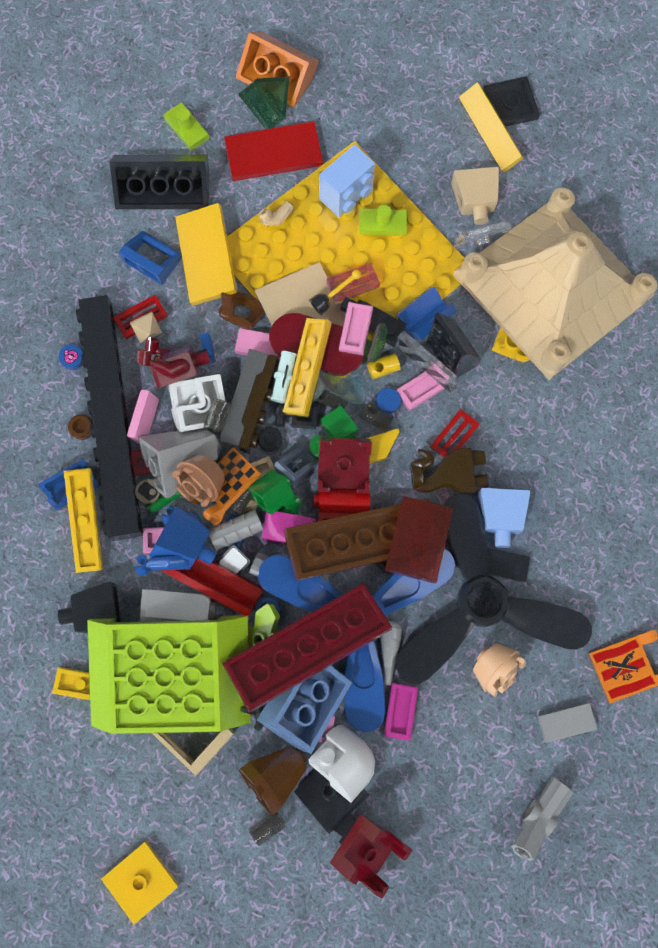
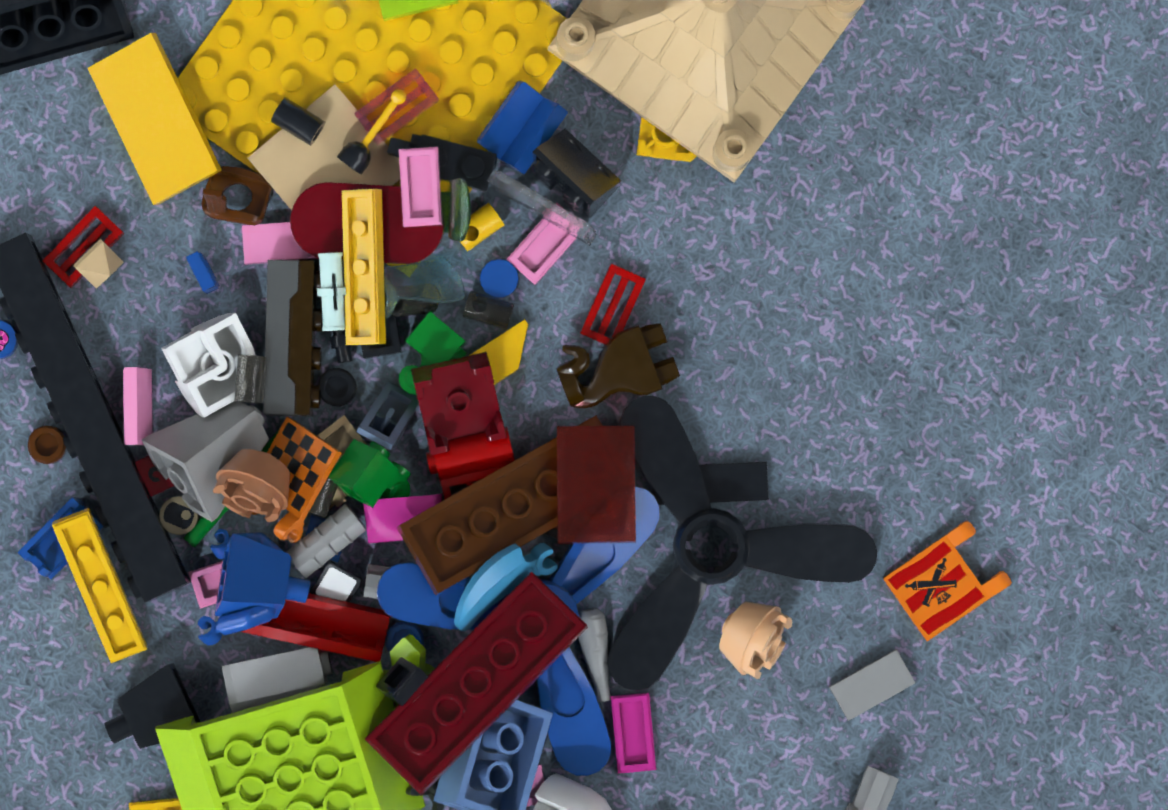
camera: 15 degrees left, 10 degrees up
(145, 266) = (64, 164): blue tile -> none
(172, 365) = (157, 317): dark red torso -> none
(258, 631) = (401, 681): none -> black tile
(276, 218) = (246, 31): tan arm -> none
(291, 274) = (297, 121): none -> black piece
(338, 582) = (498, 578): none -> dark azure piece
(503, 513) = (711, 408): light blue torso -> none

